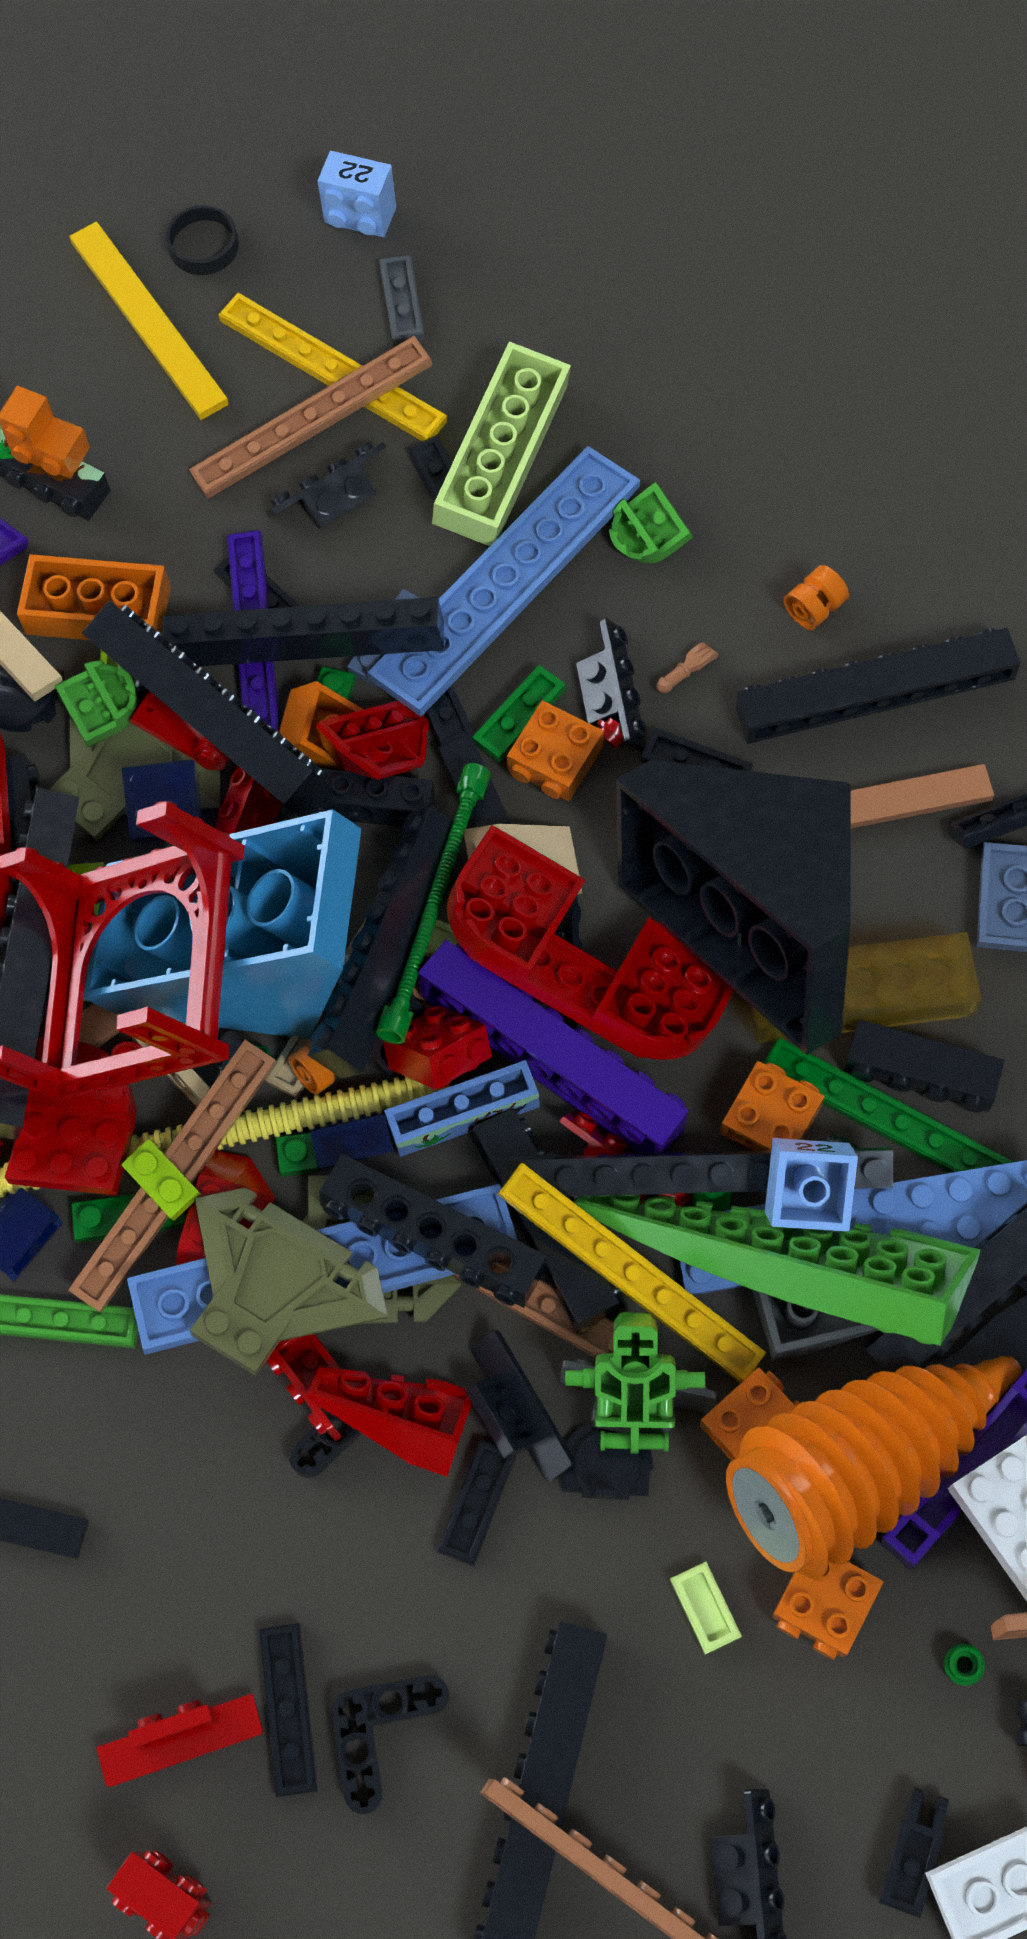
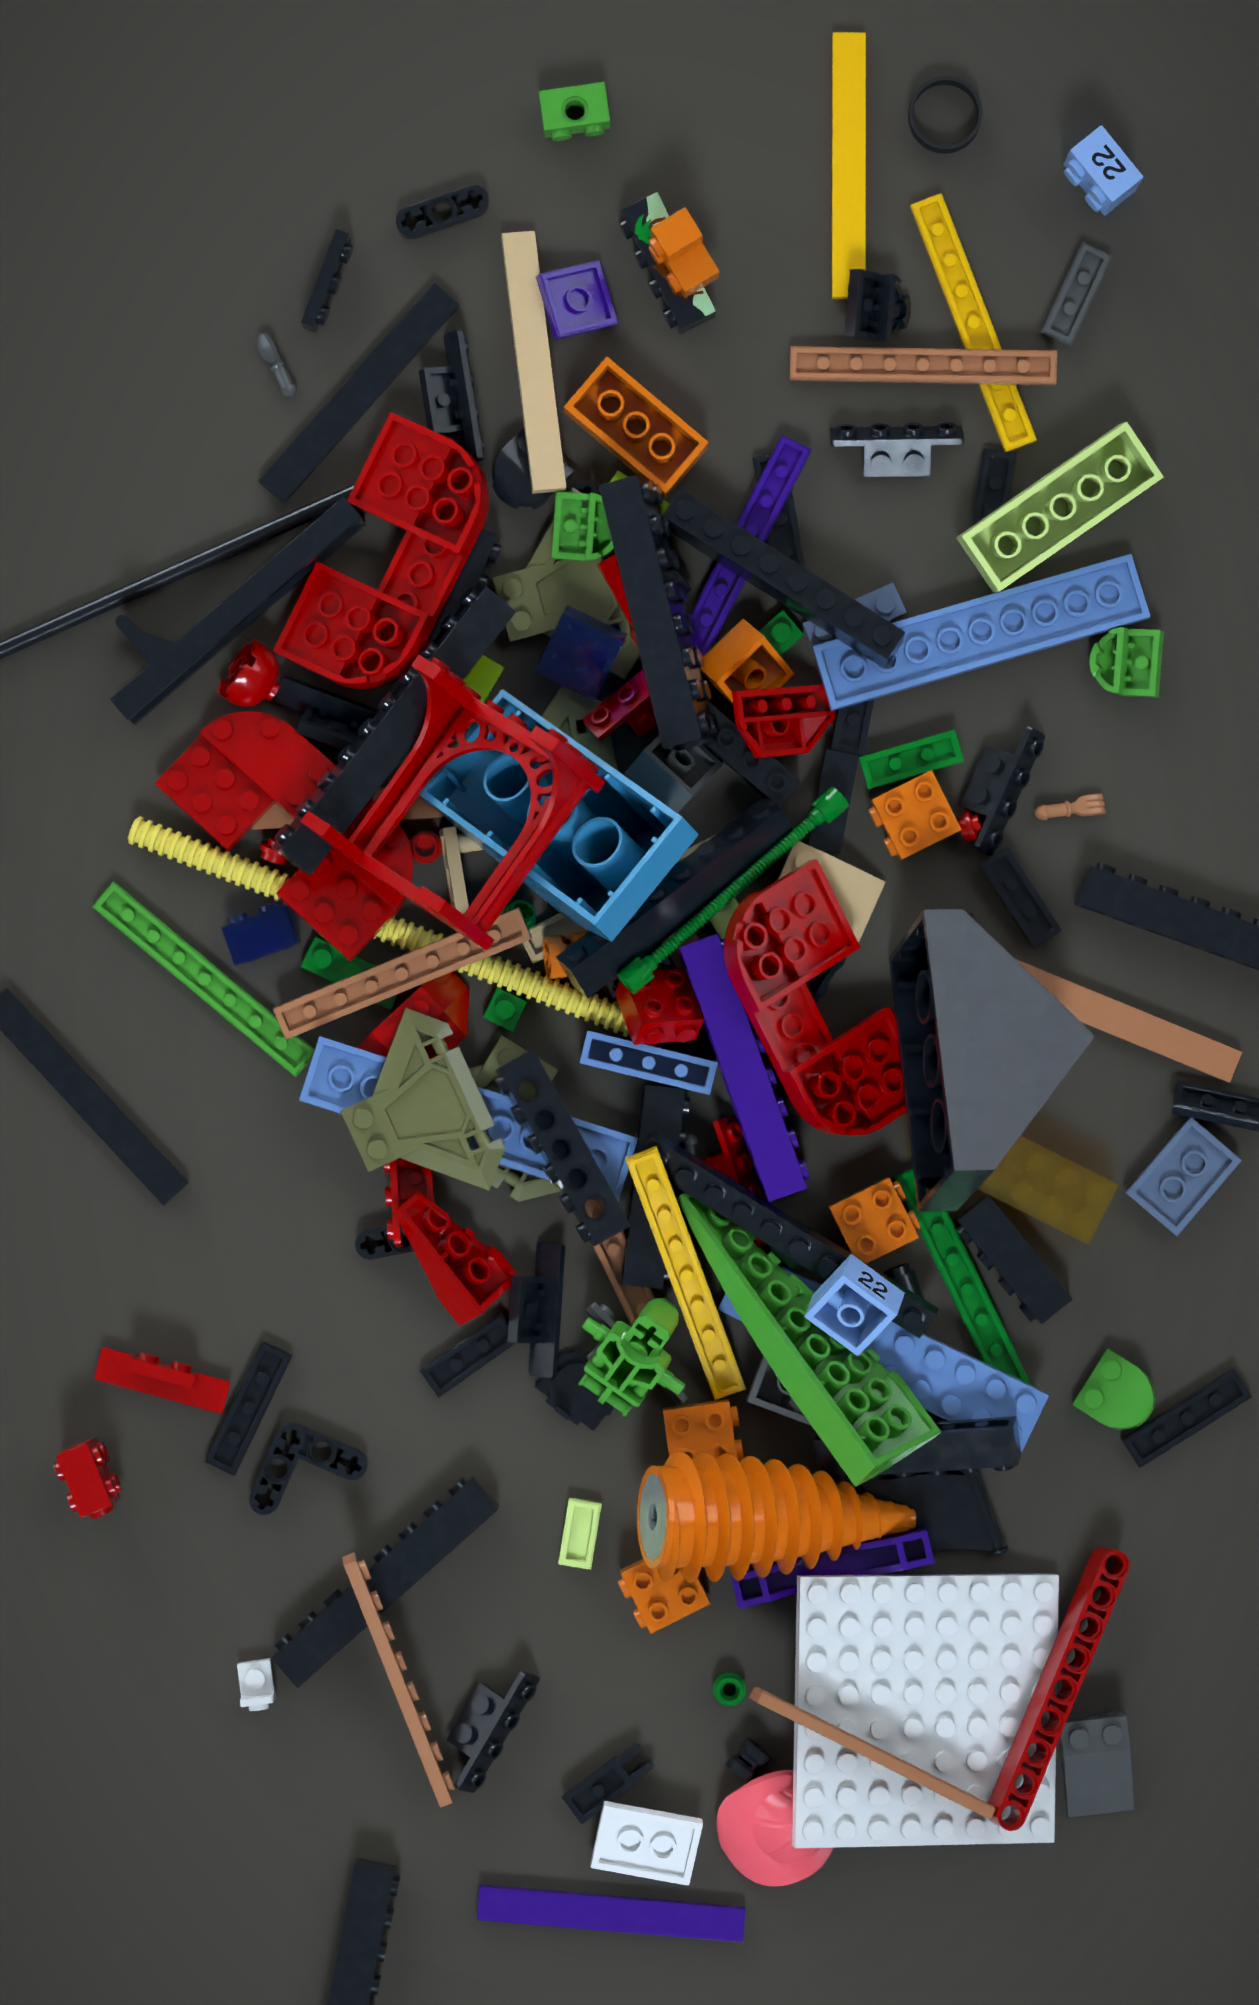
camera: 30 degrees right, 20 degrees up
(161, 1179) = (390, 975): lime plate -> none
(239, 396) = (875, 306): none -> black slope
(354, 1139) = (550, 1034): clear blue brick -> none
(820, 594) = (1216, 821): orange wheel -> none

